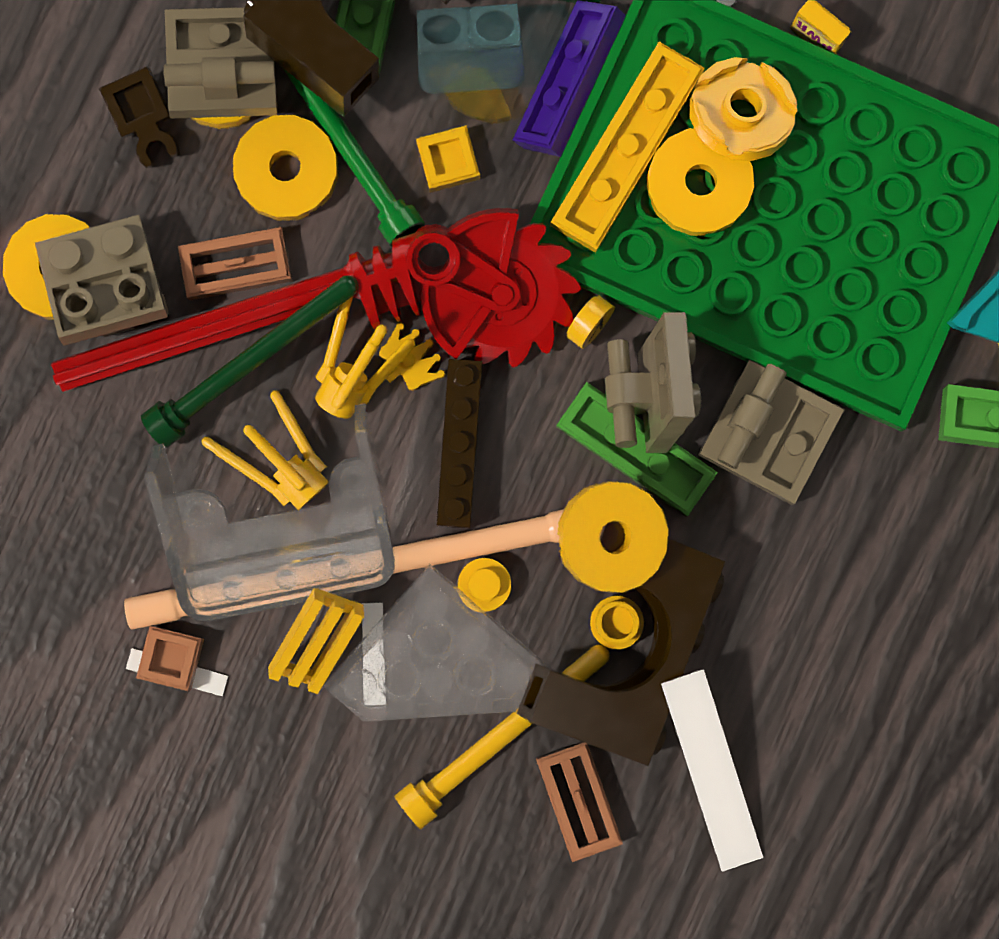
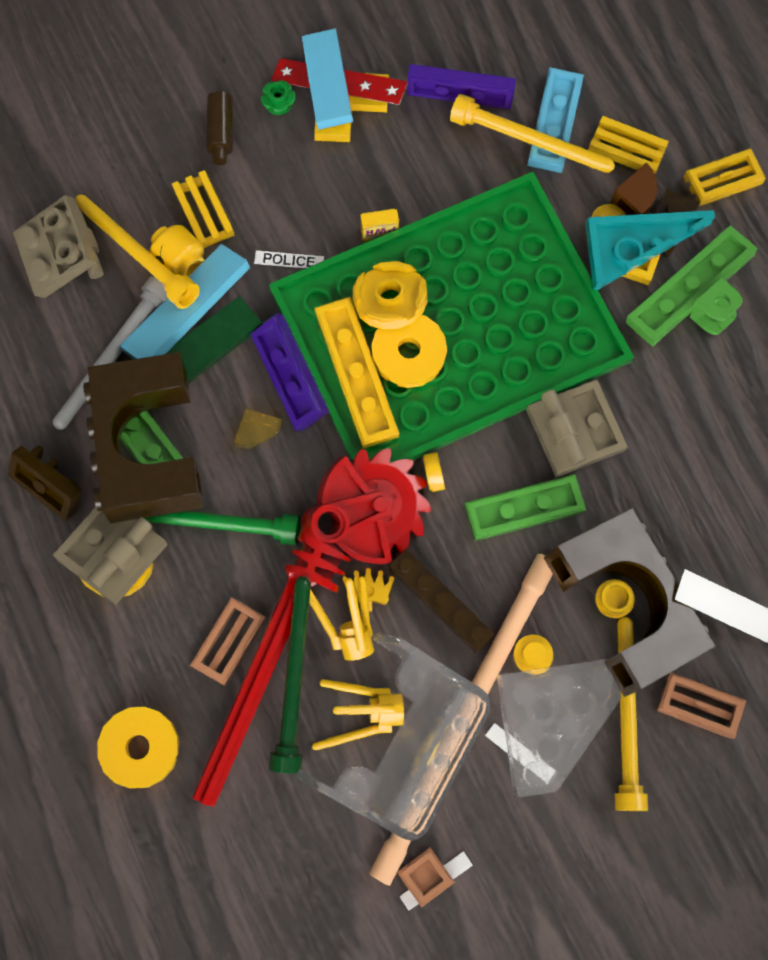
camera: 55 degrees left, 10 degrees down
(101, 280) = (172, 725): dark tan plate -> none
(138, 109) = (92, 619): dark brown plate -> none
(276, 138) = (195, 544): yellow tile -> none
(301, 671) = (495, 774): yellow tile -> none
(445, 52) = (231, 421): clear light blue piece -> none
(448, 158) = (274, 474): yellow tile -> none
(643, 543) = (587, 539): yellow tile -> none
(659, 390) = (506, 463): dark tan plate -> none

